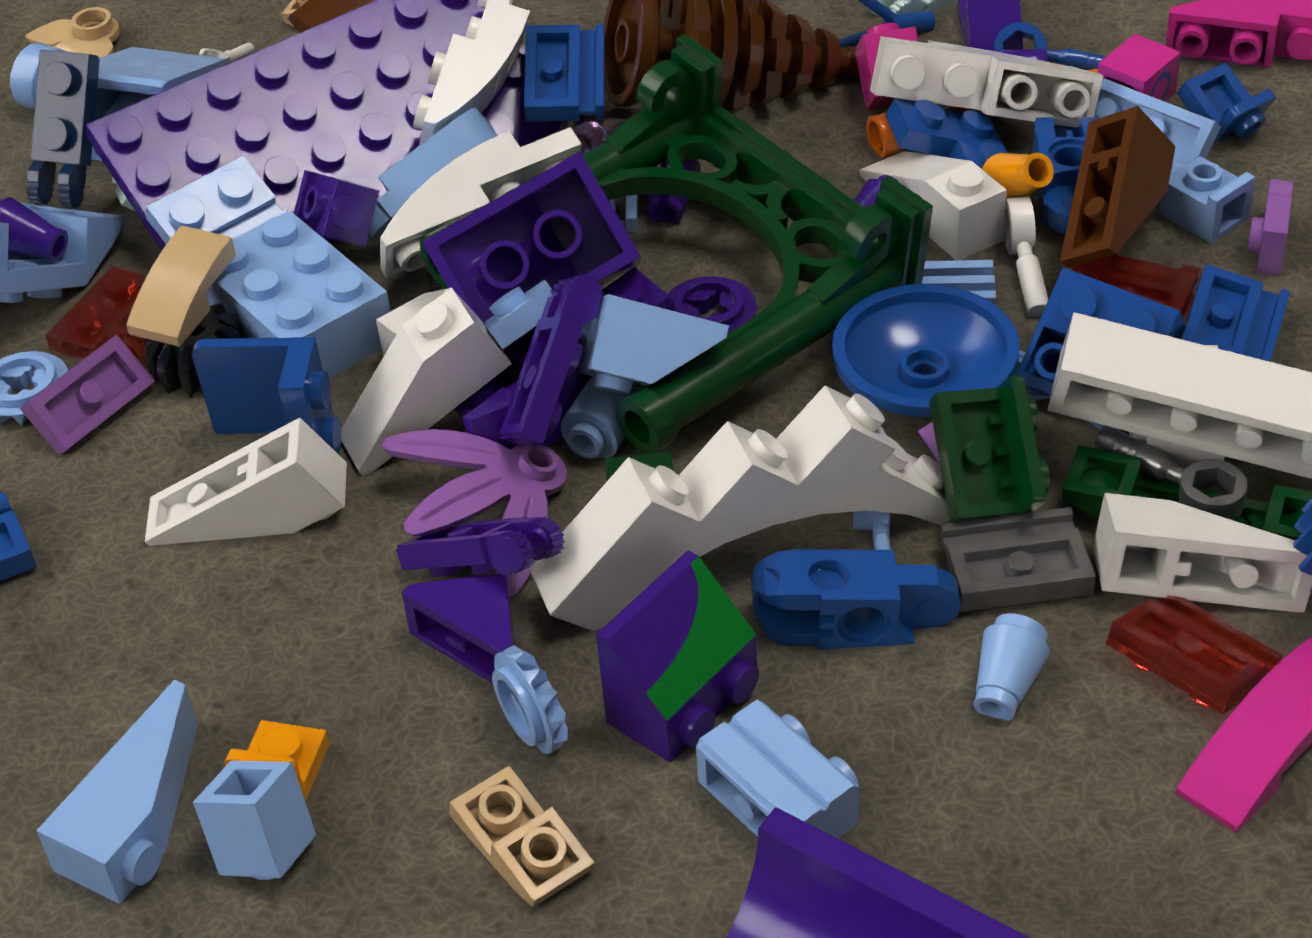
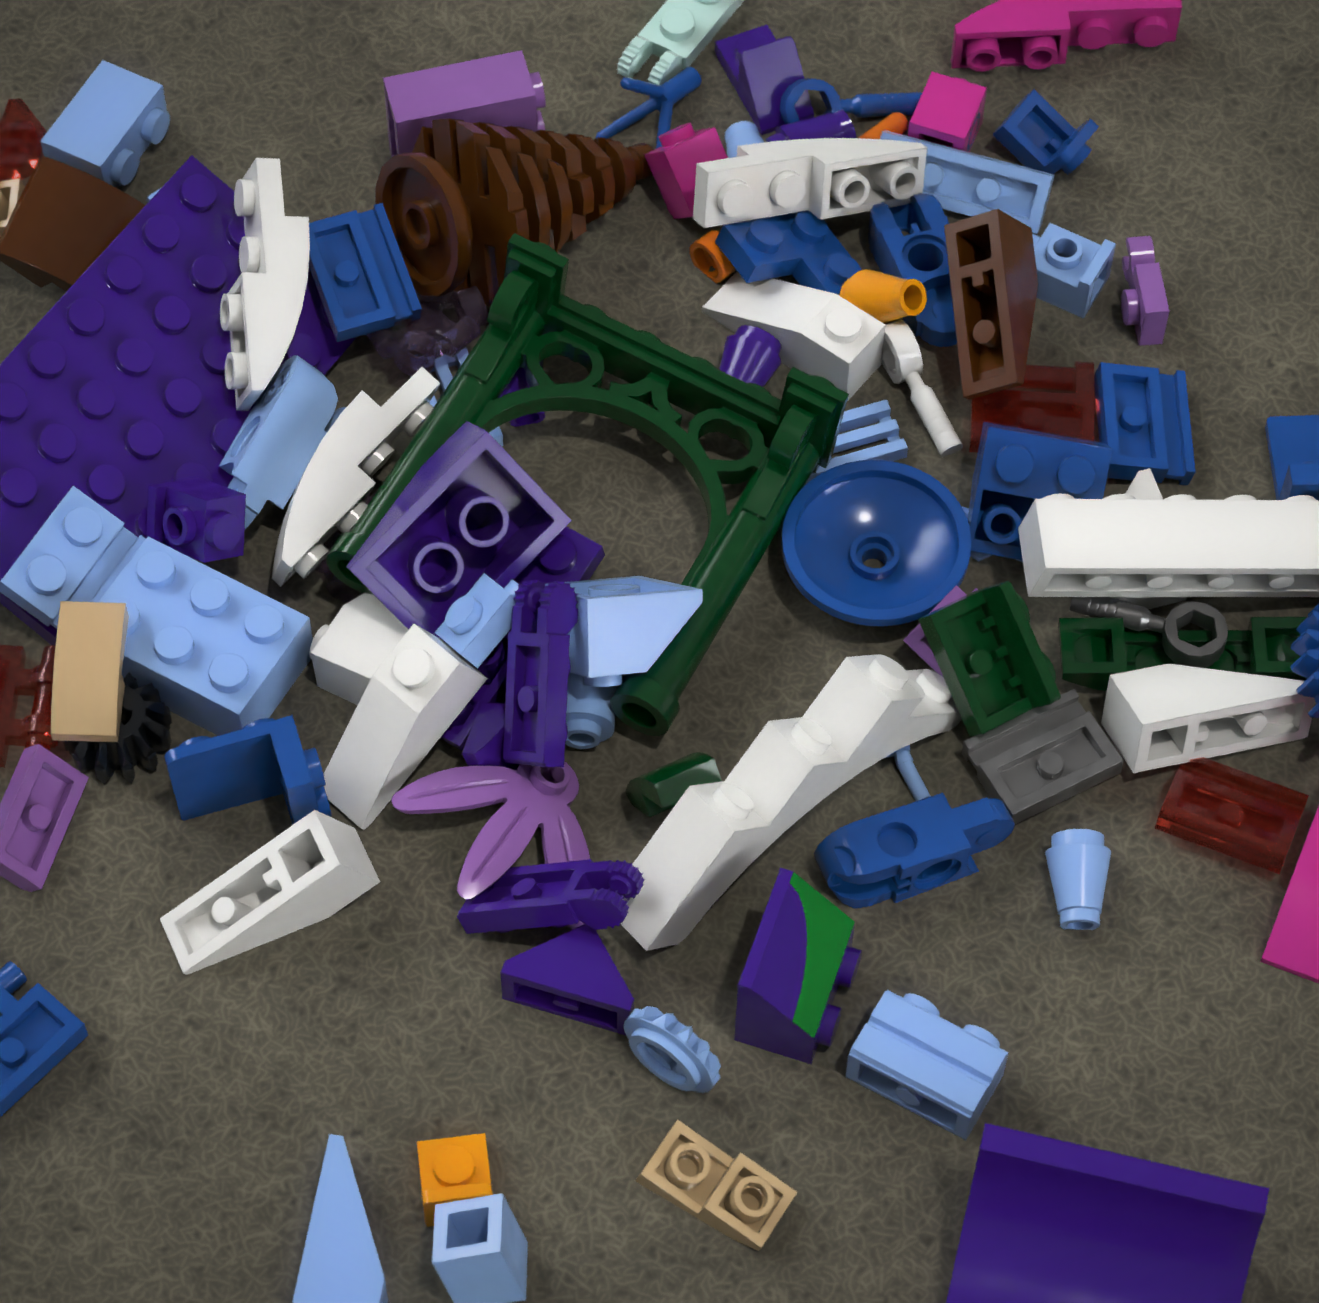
camera: 25 degrees left, 15 degrees up
(704, 293) = (651, 521): dark purple gear -> none

